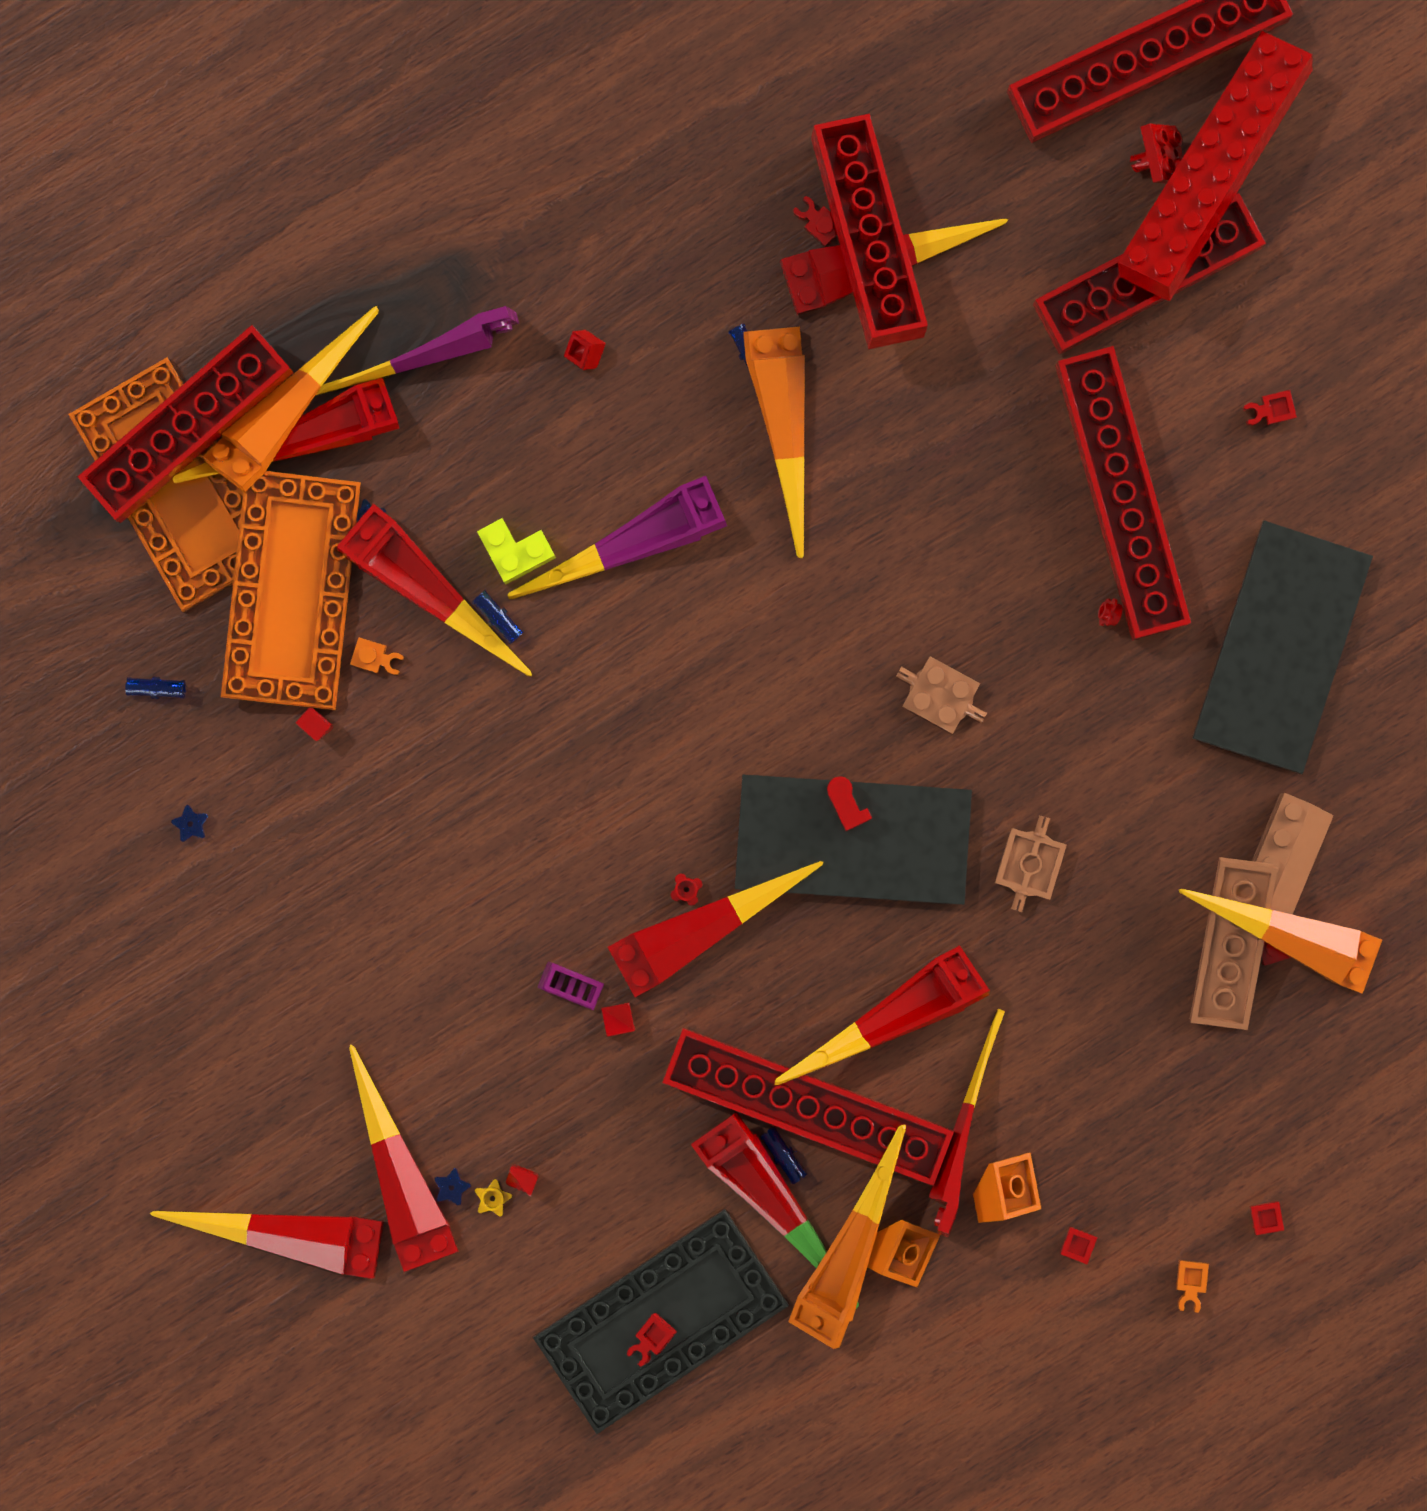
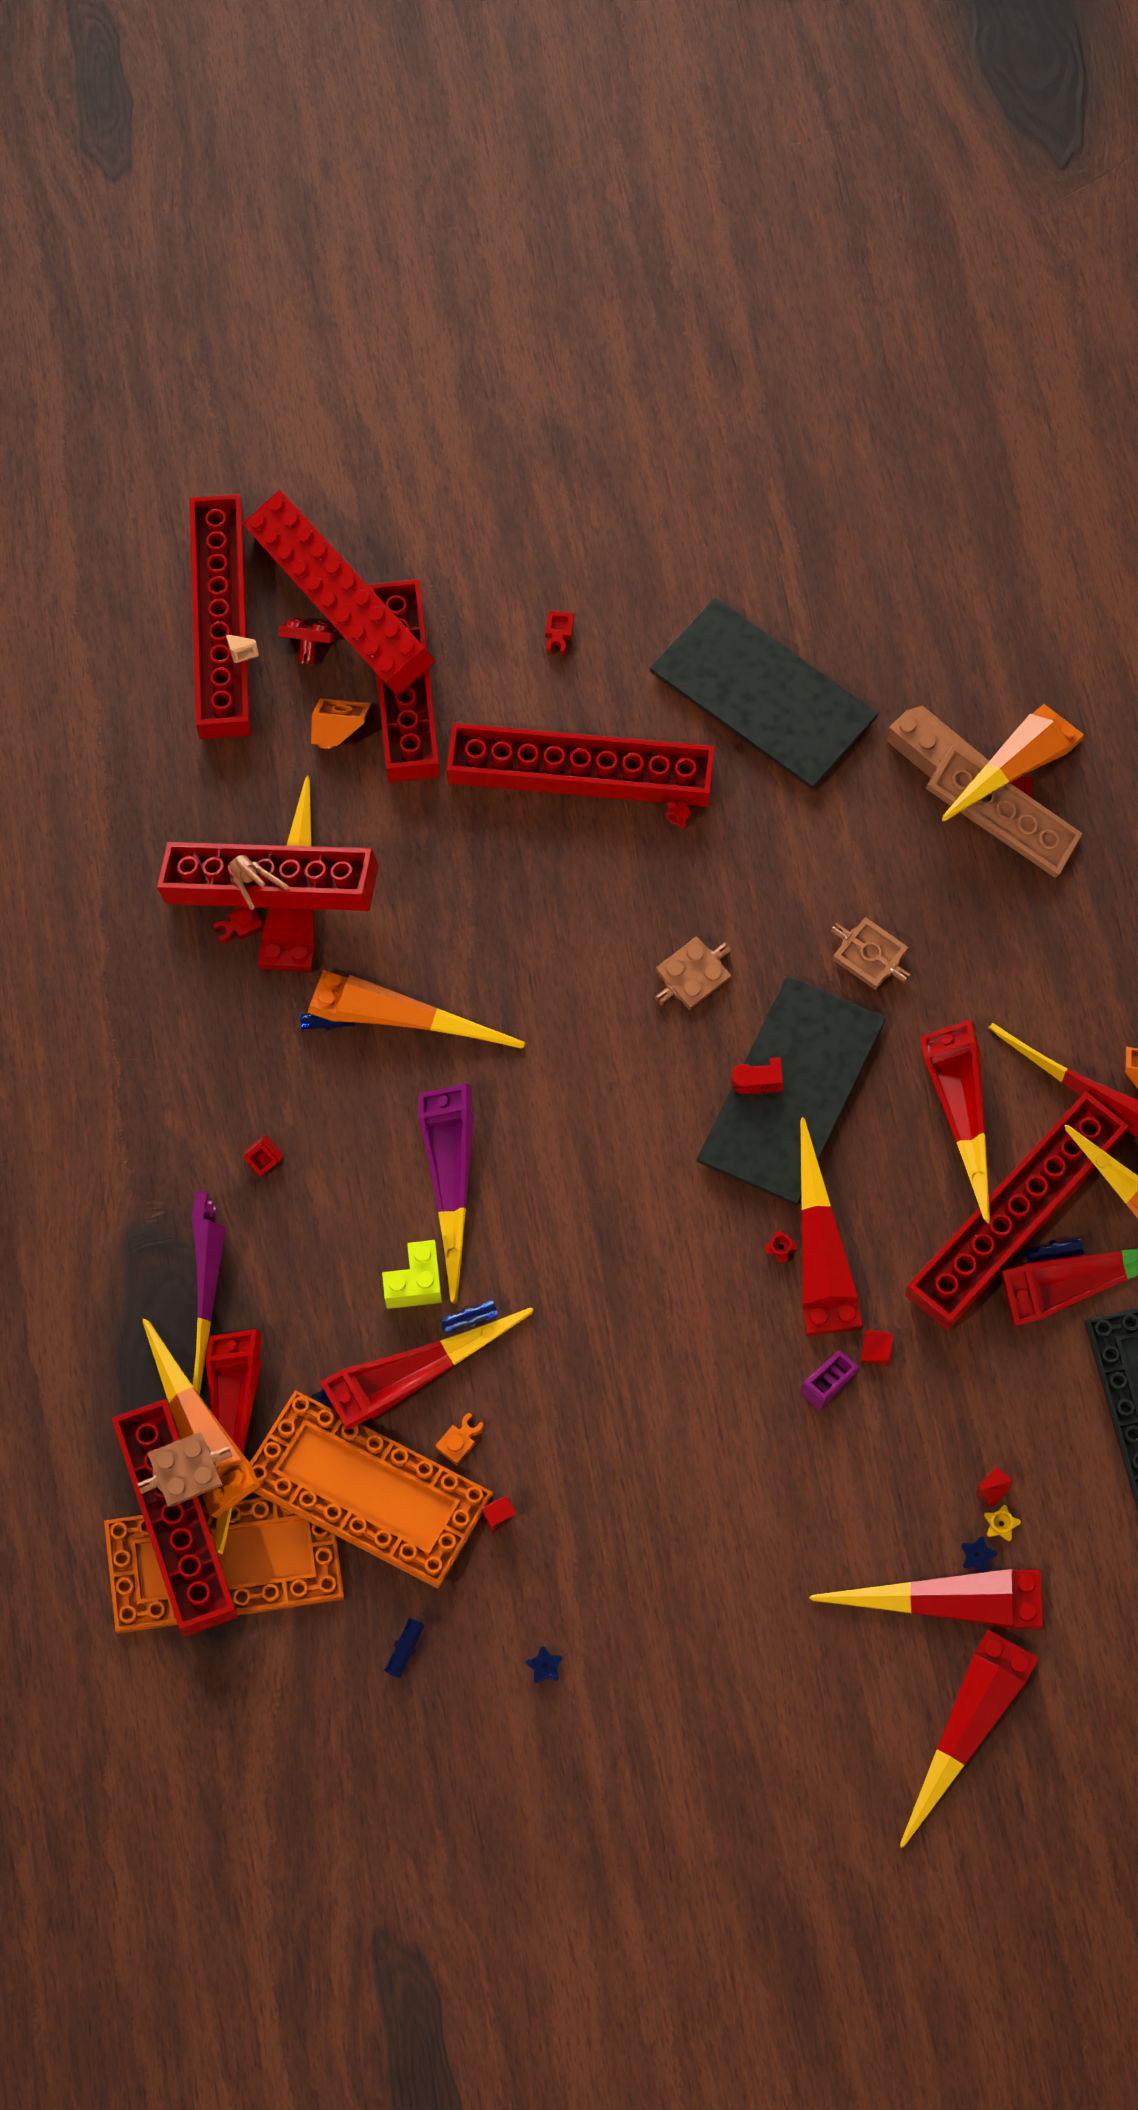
camera: 70 degrees left, 20 degrees down
(226, 416) = (184, 1469): none -> nougat plate
(854, 209) = (246, 872): none -> nougat plant
(1079, 225) = (336, 721): none -> orange slope
(1107, 95) = (242, 648): none -> light nougat slope

